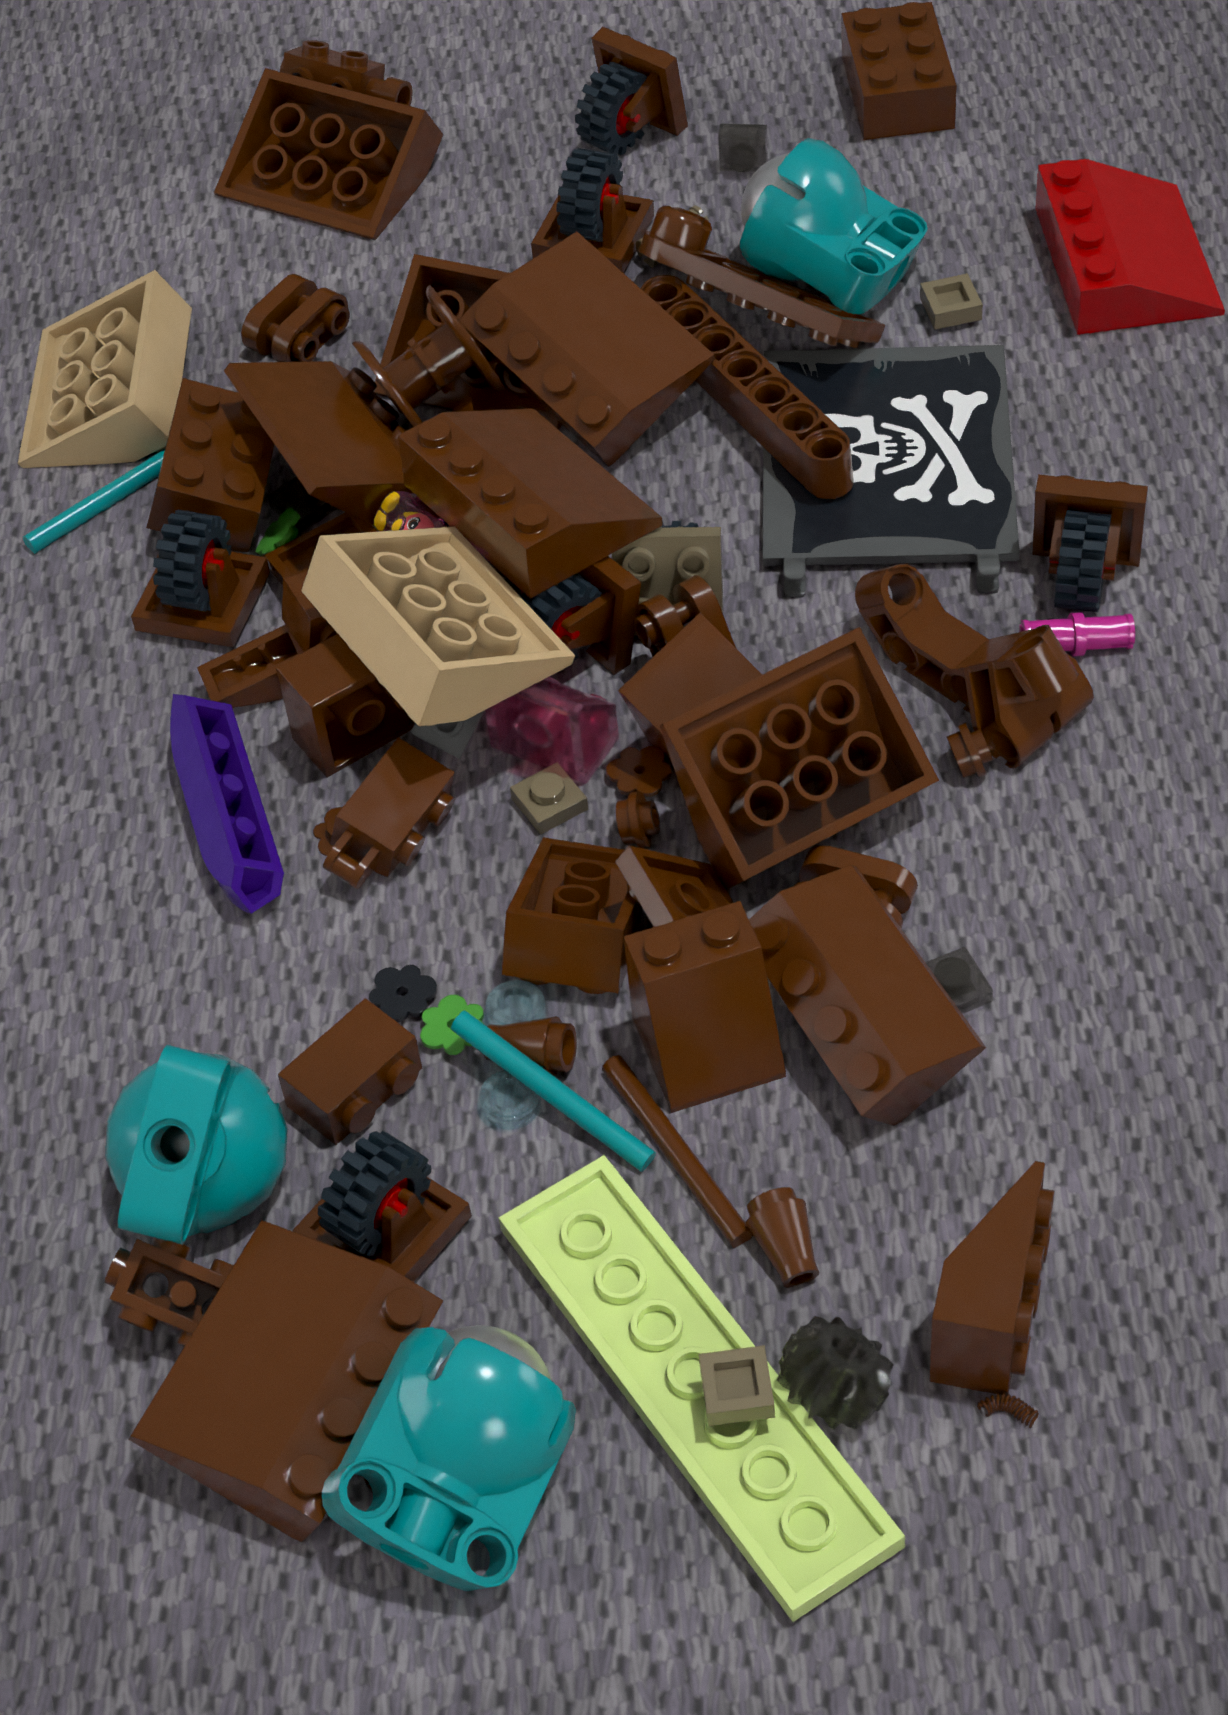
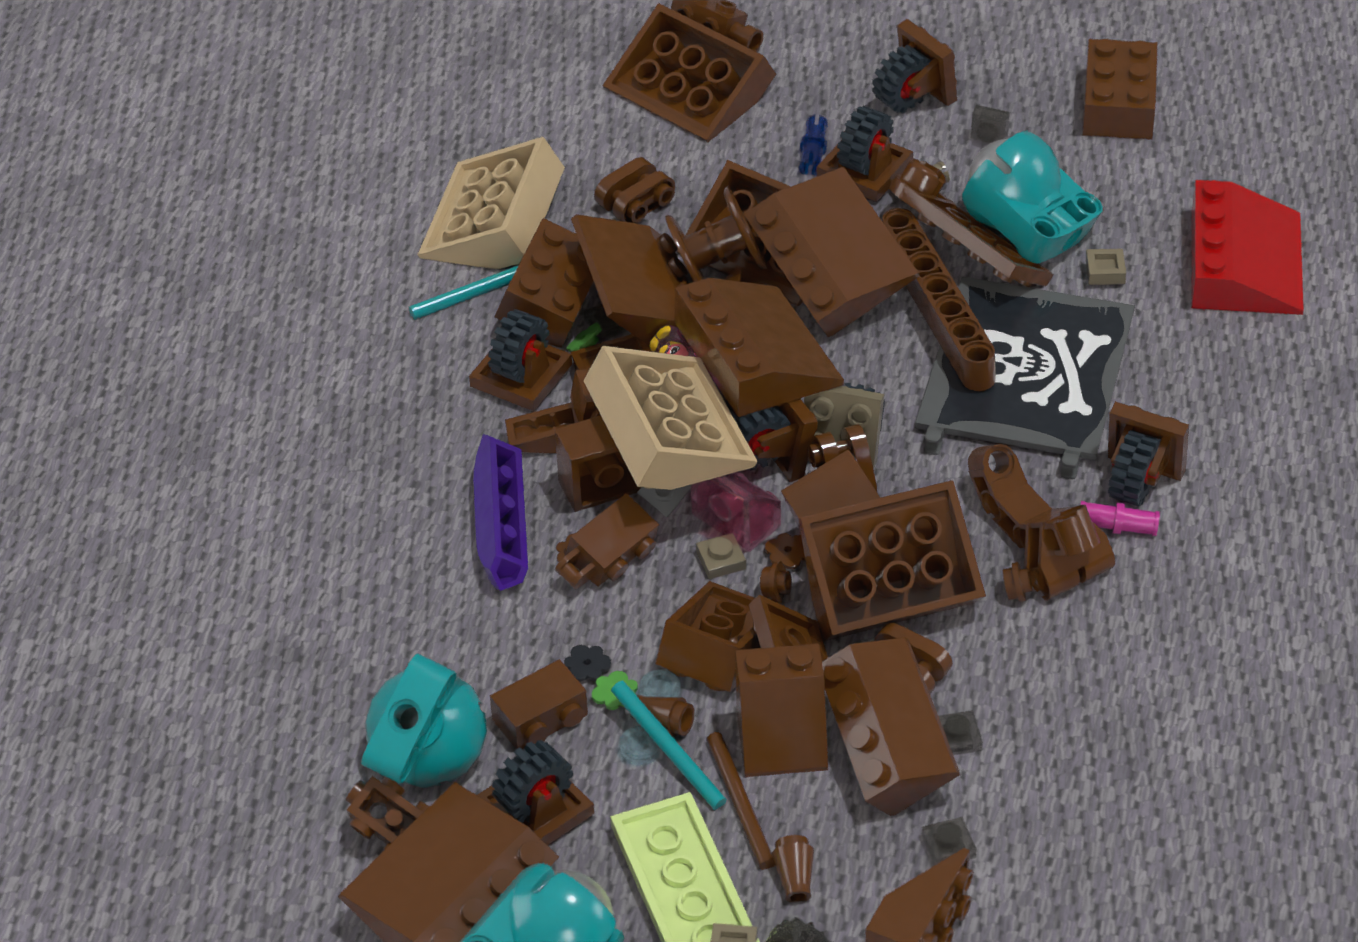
camera: 10 degrees right, 5 degrees down
(516, 216) = (813, 144): none -> clear blue pin
(989, 1147) = (947, 838): none -> clear smoke plate

